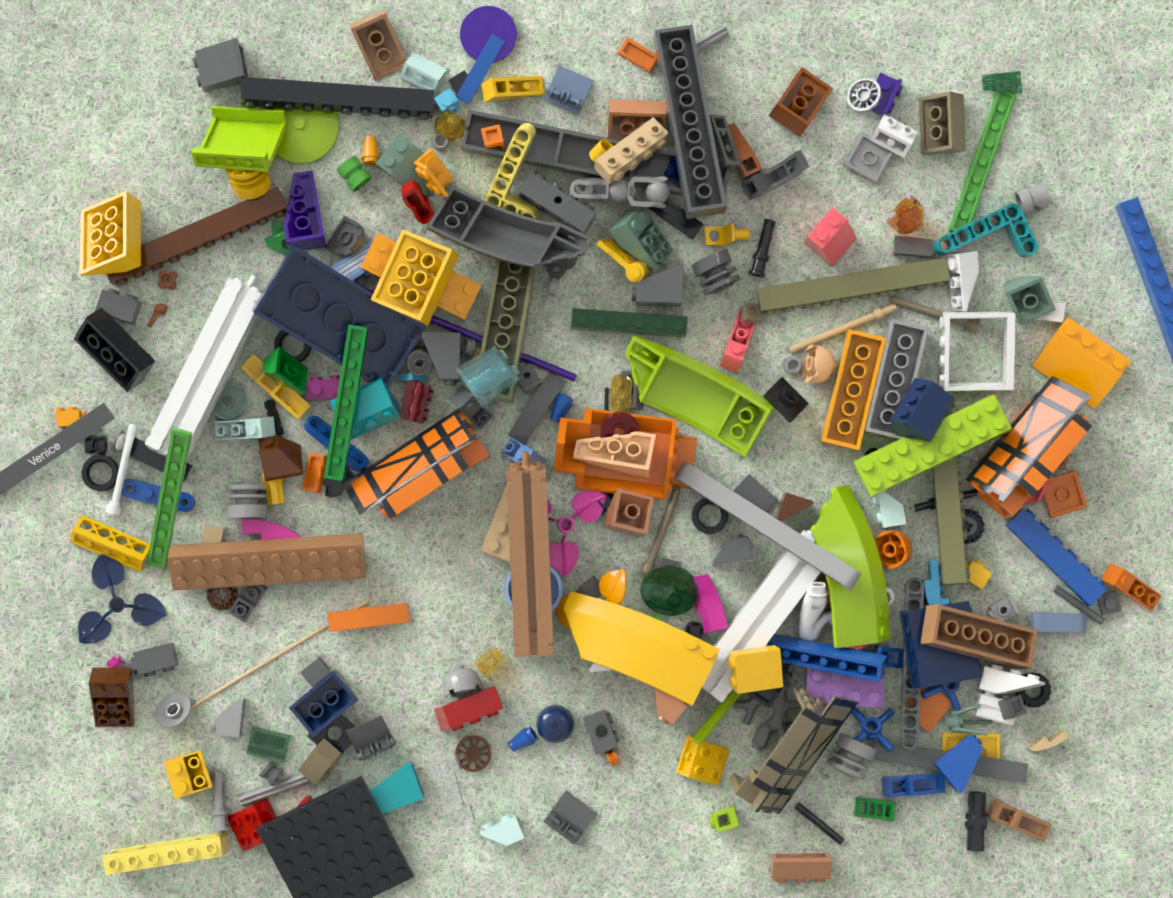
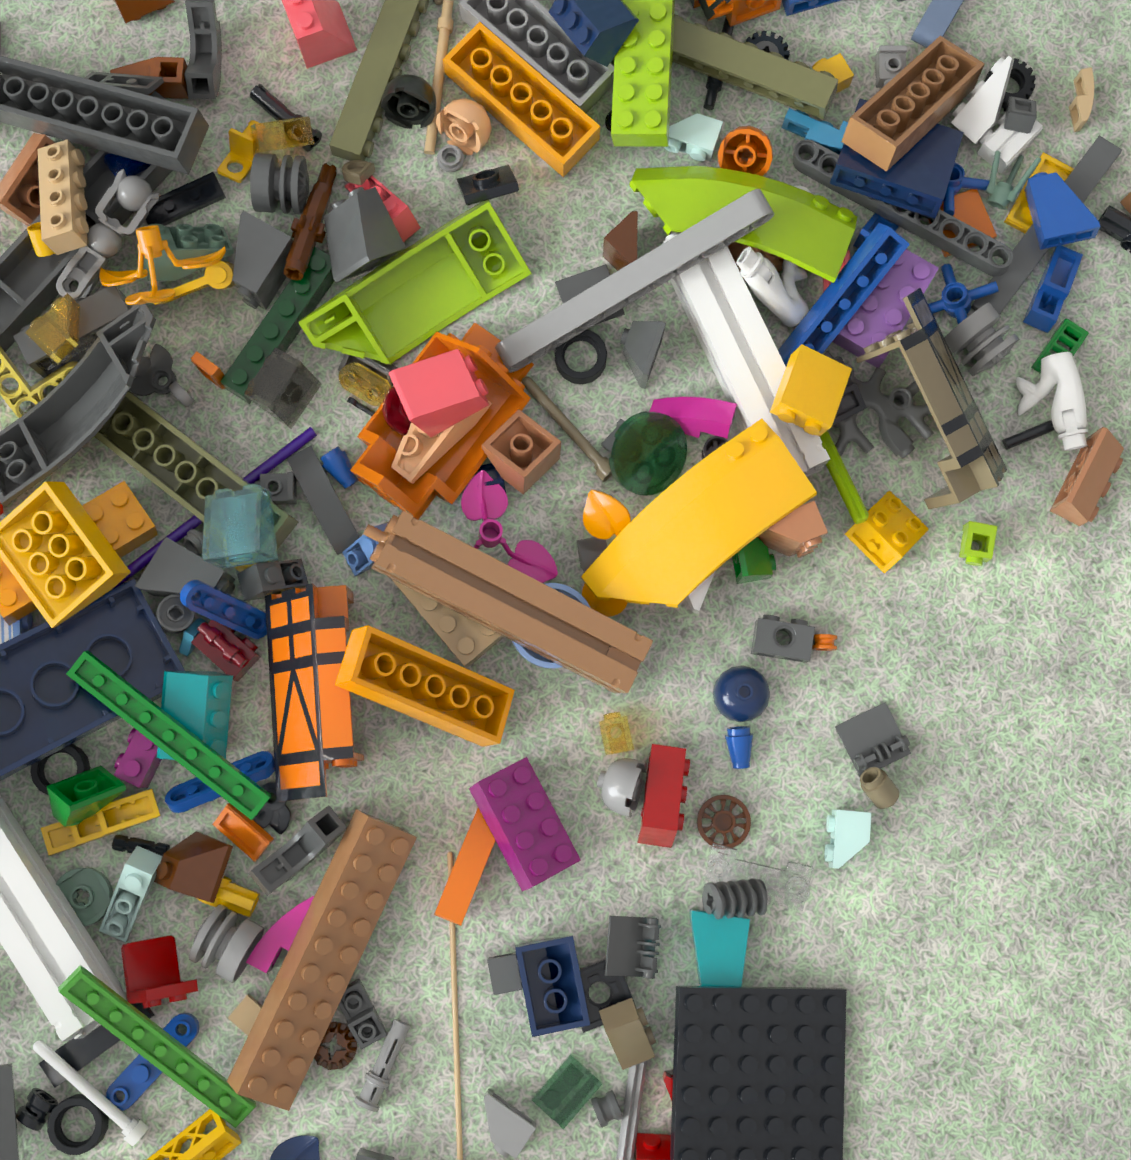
camera: 60 degrees left, 5 degrees down
(207, 468) = (153, 972): none -> red bracket
(217, 630) = (378, 1078): none -> light grey pin
(321, 513) = (298, 851): none -> dark grey arch
(407, 636) = (524, 824): none -> magenta brick
(431, 783) = (735, 898): none -> dark grey piece
(436, 391) = (224, 608): none -> blue plate
(454, 536) = (424, 686): none -> light orange brick
(542, 835) = (879, 787): none -> dark tan brick
(546, 198) = (57, 329): none -> clear yellow slope
(576, 297) = (208, 369): none -> orange tile
(589, 346) = (283, 387): none -> clear smoke slope
(625, 228) = (151, 247): none -> light orange plant
(635, 447) = (440, 391): none -> coral slope
(637, 691) = (753, 562): none -> green slope
(696, 307) = (310, 226): none -> reddish brown piece
(708, 342) = (360, 234): none -> dark grey slope
(747, 256) = (282, 134): none -> clear yellow slope
(814, 321) = (409, 101): none -> pearl dark grey cylinder
(841, 830) = (1069, 404): none -> white piece

